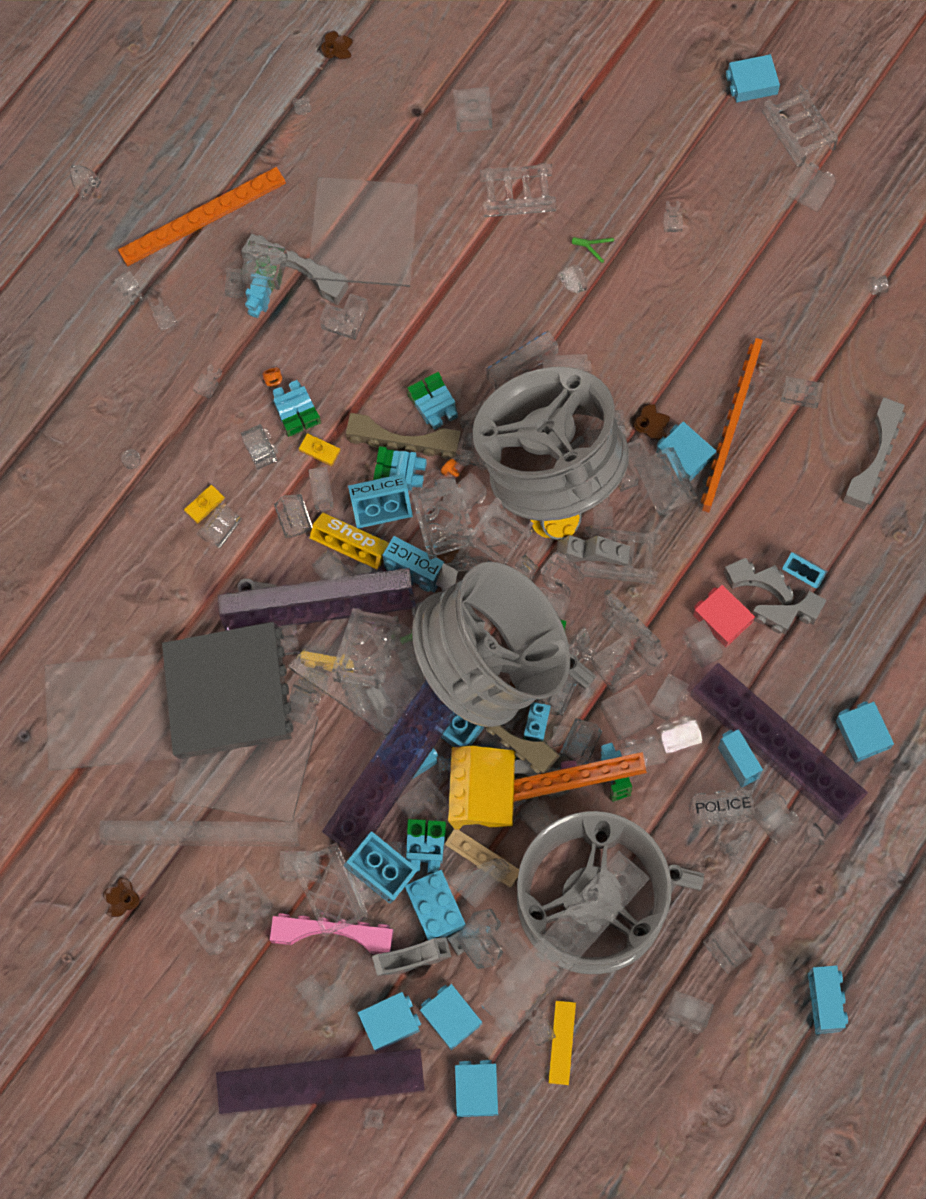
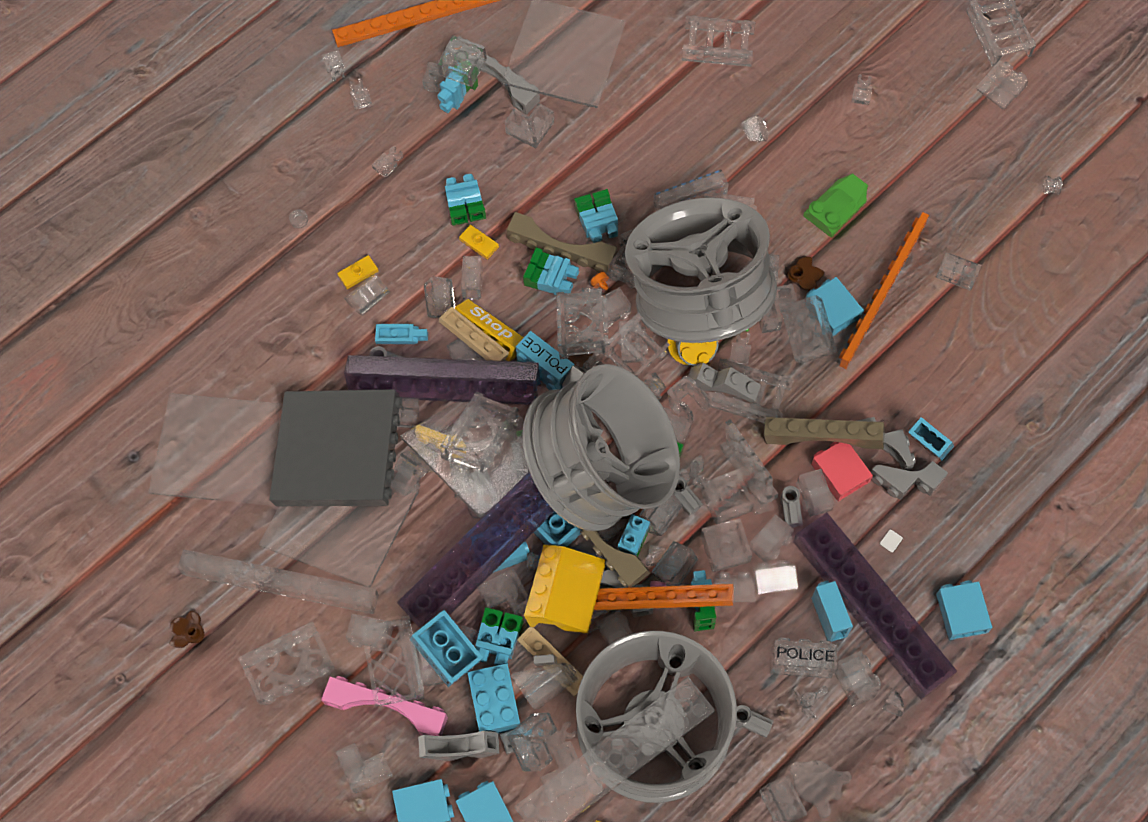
camera: 10 degrees right, 5 degrees down
(259, 446) = (421, 228): clear brick -> none
(261, 561) = (399, 334): none -> medium azure hinge
(272, 374) = (449, 165): orange tile -> none
(337, 551) = (473, 336): none -> tan plate
(380, 501) = (525, 297): medium azure brick -> none
(475, 859) = (543, 660): none -> light grey tile
(586, 243) = (774, 99): bright green plant -> none
(670, 343) = (837, 204): none -> bright green slope
(682, 664) = (791, 508): none -> light grey piece
(731, 579) = (857, 433): none -> dark tan arch
(783, 676) = (891, 540): none -> white sticker
(861, 486) = (1002, 370): light grey arch -> none

